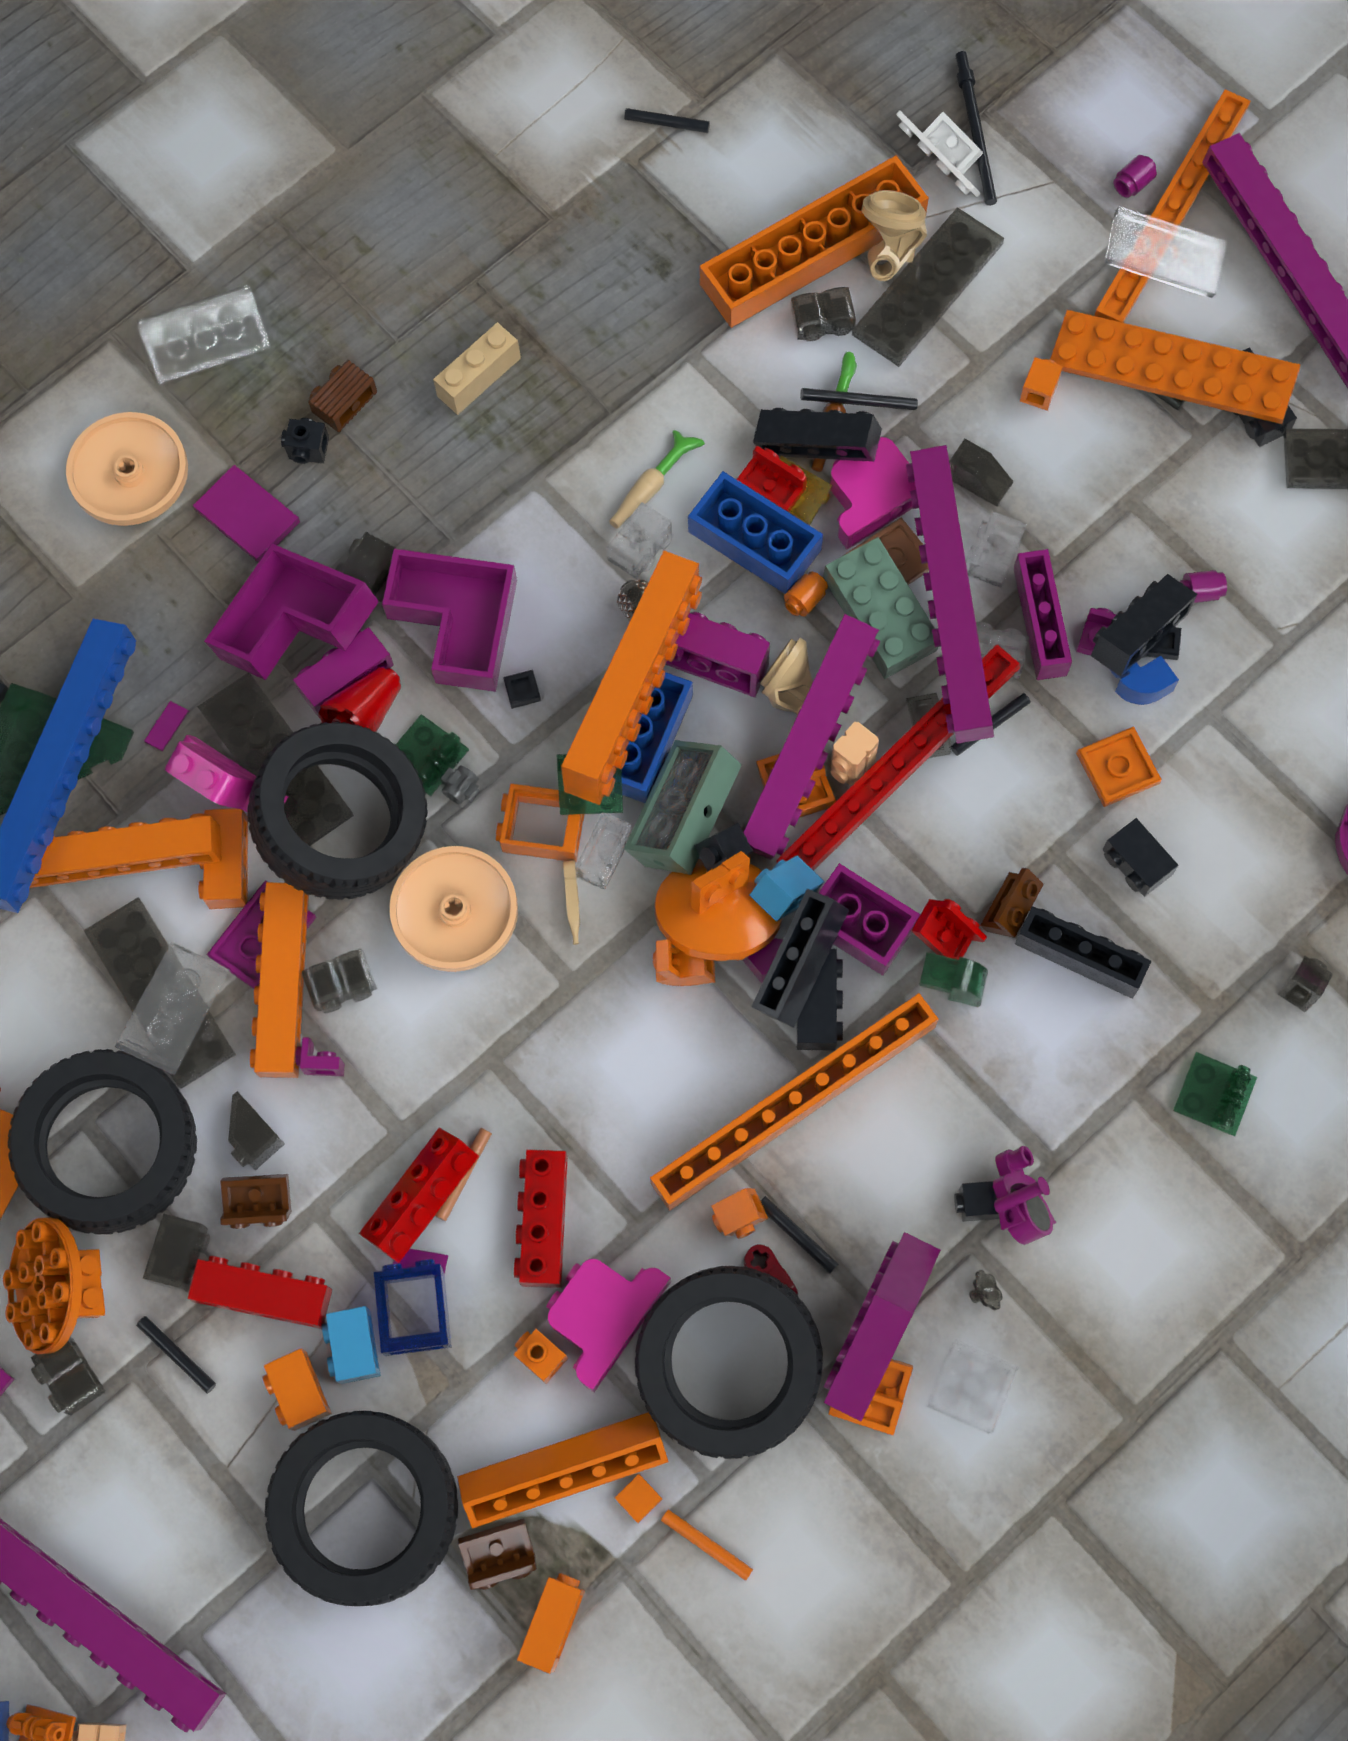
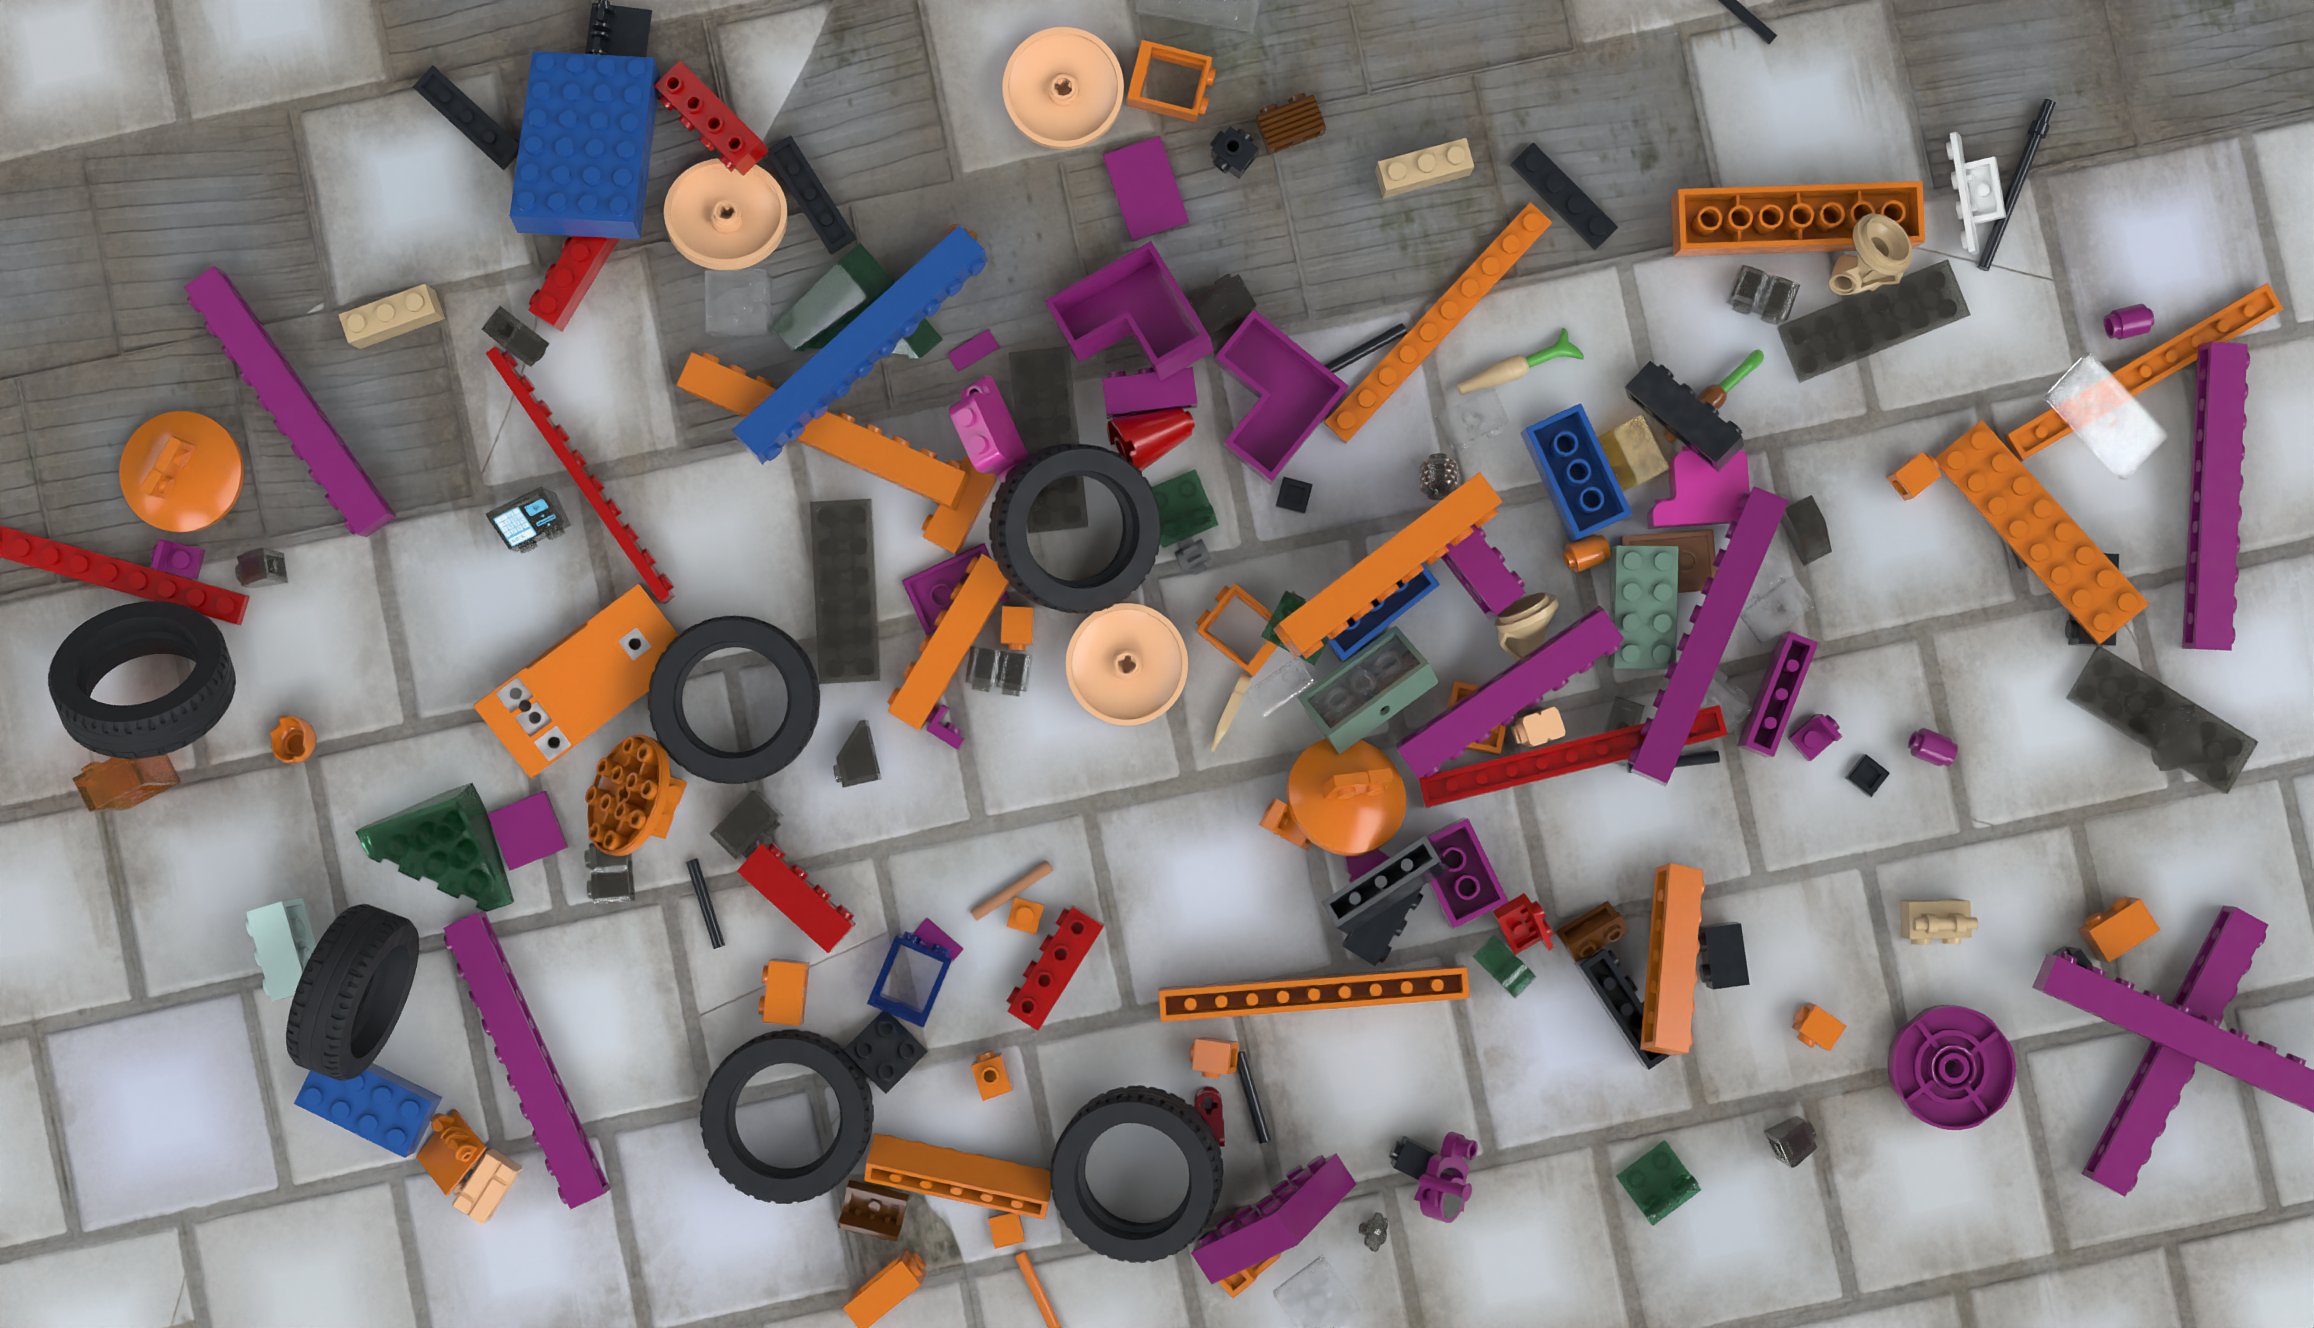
camera: 25 degrees right, 15 degrees up
(172, 1008) = (848, 619): clear tile -> none
(214, 395) = (1176, 56): none -> orange window
(255, 1200) = (832, 817): reddish brown bracket -> none
(335, 932) = (1017, 627): none -> orange brick
(351, 1345) = (847, 980): dark azure brick -> none
(419, 1194) = (966, 893): red brick -> none
(425, 1393) = (885, 1051): none -> black hinge
(488, 1189) = (1025, 915): none -> orange plate
(517, 532) = (1366, 348): none -> black bar
(562, 486) = (1438, 322): none -> orange plate
(602, 1314) = (1060, 1072): dark pink brick -> none
(610, 330) = (1564, 196): none -> black plate
(722, 846) = (1379, 749): black brick -> none
(774, 478) = (1619, 436): red bracket -> none
(783, 887) = (1411, 814): dark azure brick -> none
(858, 399) = (1743, 397): black bar -> none
(1097, 883) = (1672, 960): none -> orange brick
(1118, 766) = (1757, 862): orange tile -> none
(1143, 624) = (1856, 758): black brick -> none
(1146, 683) = (1823, 804): blue brick -> none
(1262, 872) = (1817, 1027): none -> orange brick
(1303, 723) = (1936, 919): none -> tan brick

